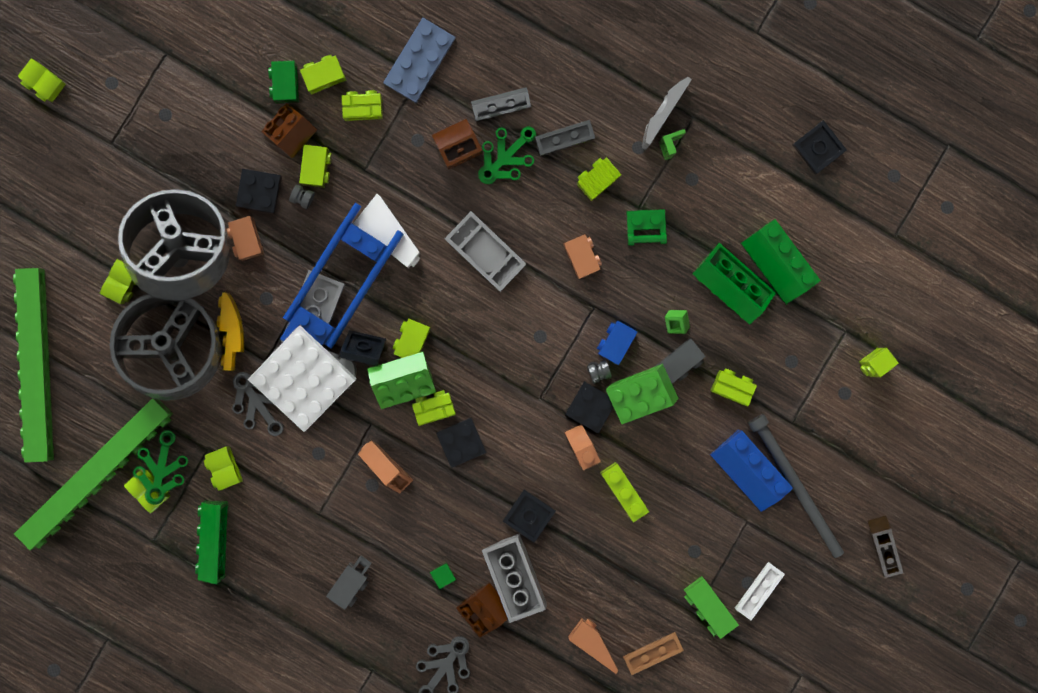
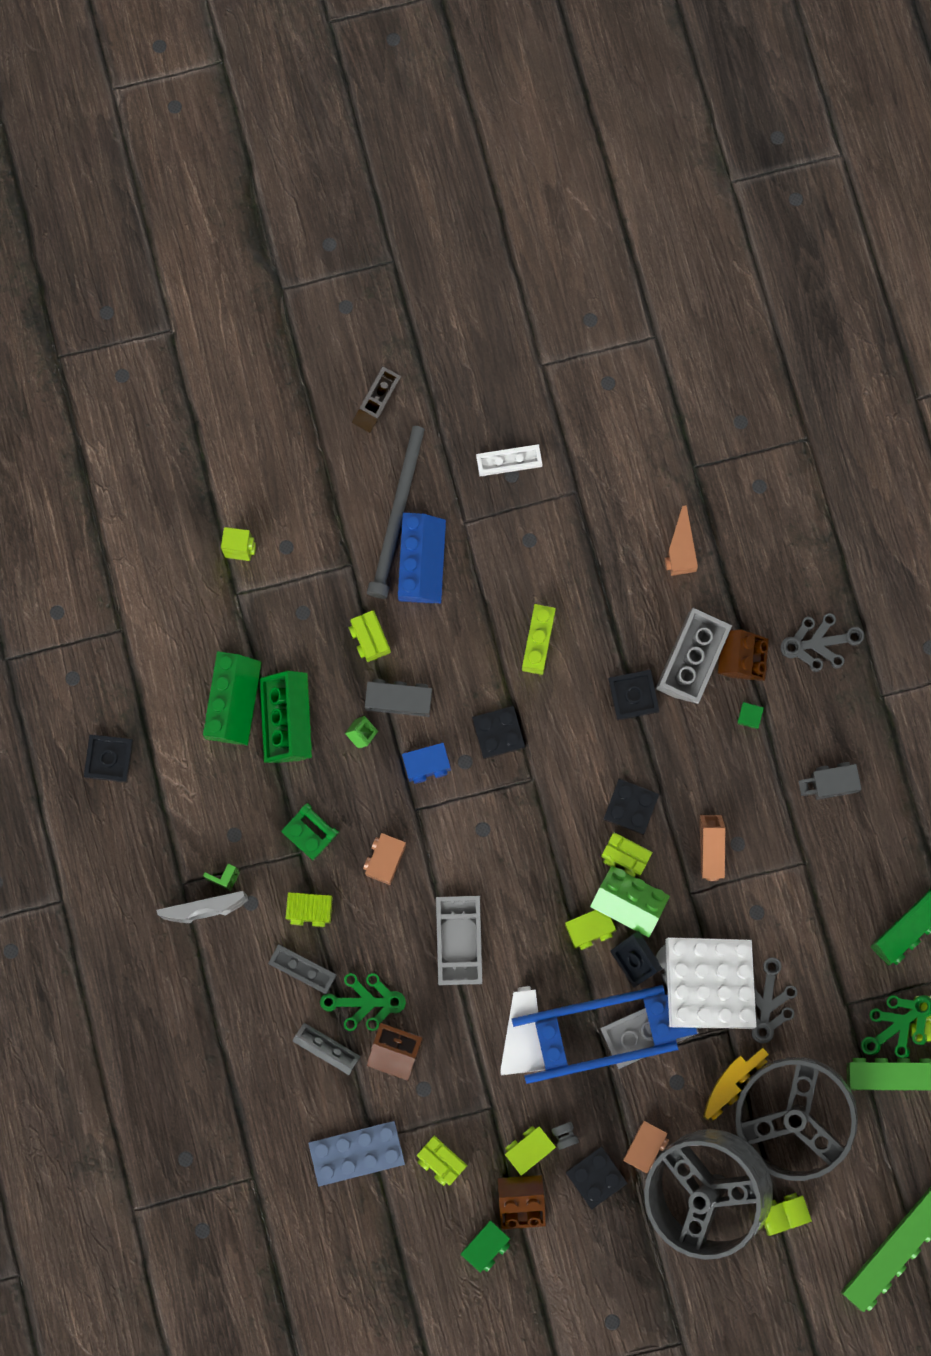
camera: 135 degrees left, 10 degrees down
(223, 468) = (847, 975): lime brick -> none
(322, 74) = (447, 1220): lime brick -> none
(582, 447) = (537, 706): nougat slope -> none
(599, 371) = (463, 753): dark grey wheel -> none
(642, 394) = (447, 700): bright green brick -> none
(653, 653) = (641, 493): medium nougat plate -> none
(710, 608) = (561, 484): bright green brick -> none

